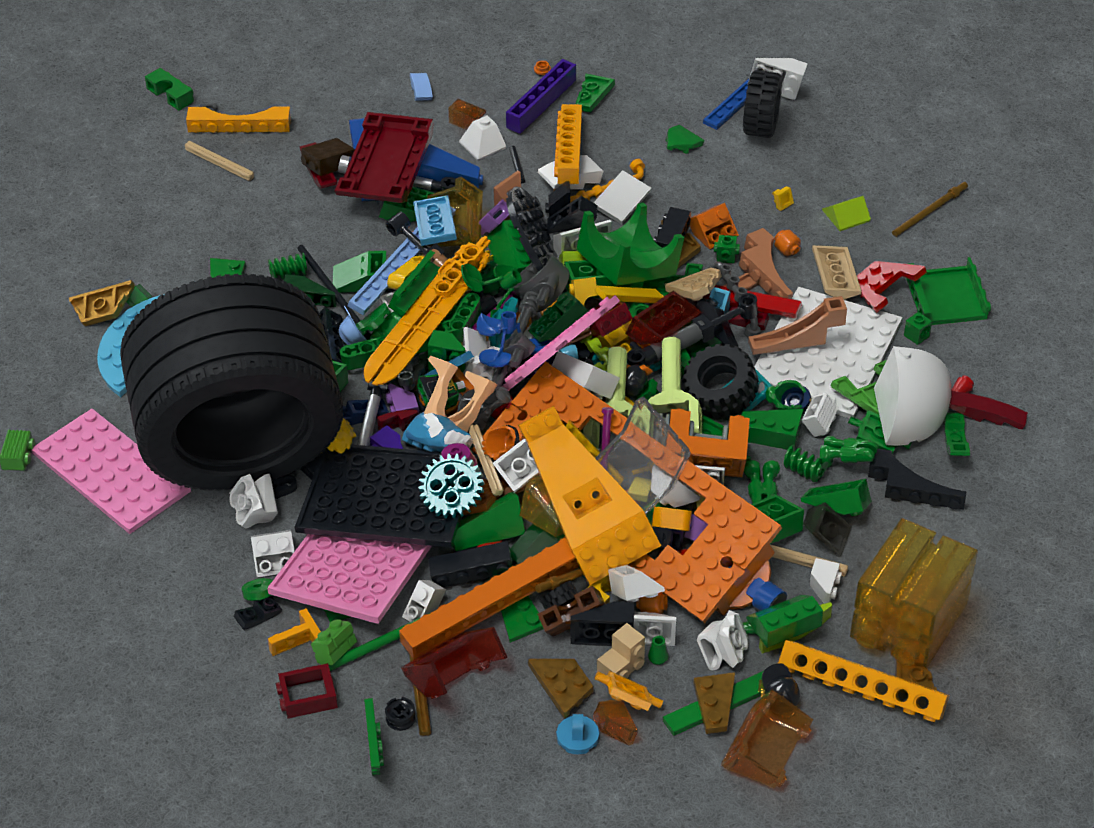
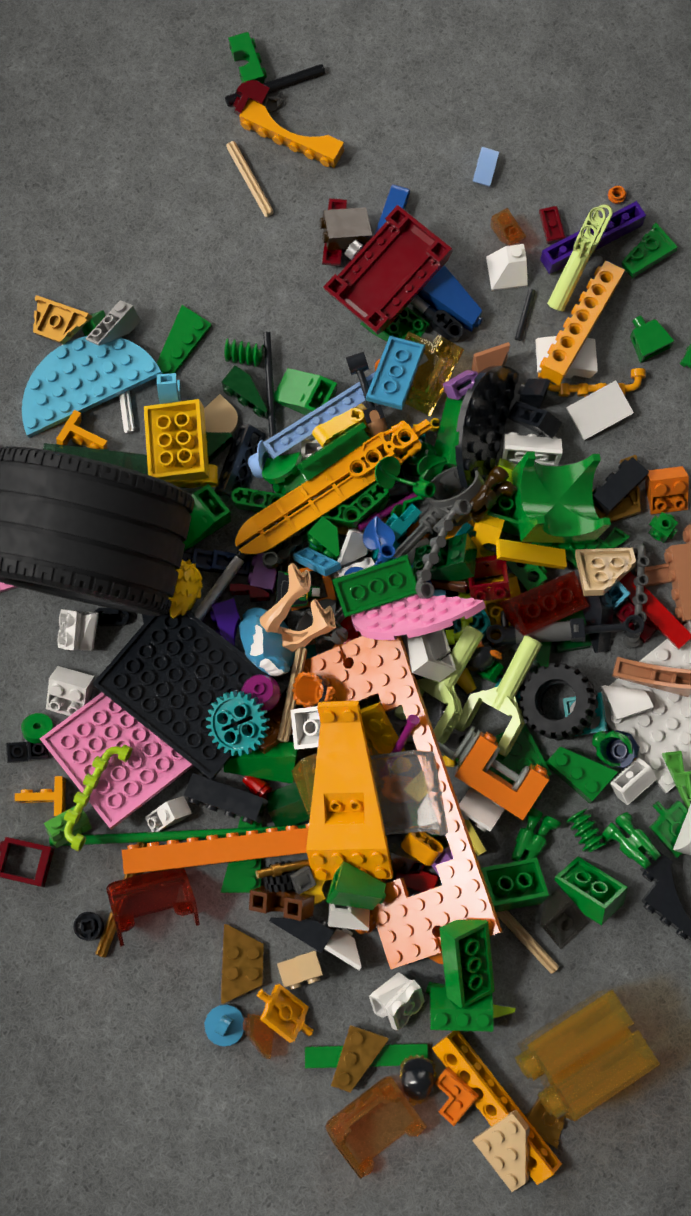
camera: 30 degrees right, 30 degrees up
(159, 282) = (115, 324): none -> light grey slope
(186, 99) = (249, 90): none -> dark red brick
(203, 97) = (285, 81): none -> black axle
(338, 605) = (82, 799): none -> lime bar
(374, 738) = (42, 964): green wing -> none
(499, 101) = (552, 224): none -> dark red plate
(513, 346) = (375, 585): none -> green tile
(540, 101) = (582, 251): none -> yellowish green piece
(551, 324) = (423, 589): none -> dark grey bar
(570, 258) = (486, 497): none -> dark brown piece
(580, 582) = (303, 880): none -> dark grey tile
(631, 141) = (649, 338): none -> green torso
(635, 557) = (355, 888): none -> green slope
(658, 651) = (344, 976): green cone -> none
(765, 563) = (467, 961): none -> green slope
(779, 364) = (626, 701): none -> white slope
(824, 578) = (527, 972): white slope -> none
(828, 686) = (459, 1093): none -> orange tile
(894, 702) = (507, 1149): none -> tan plate

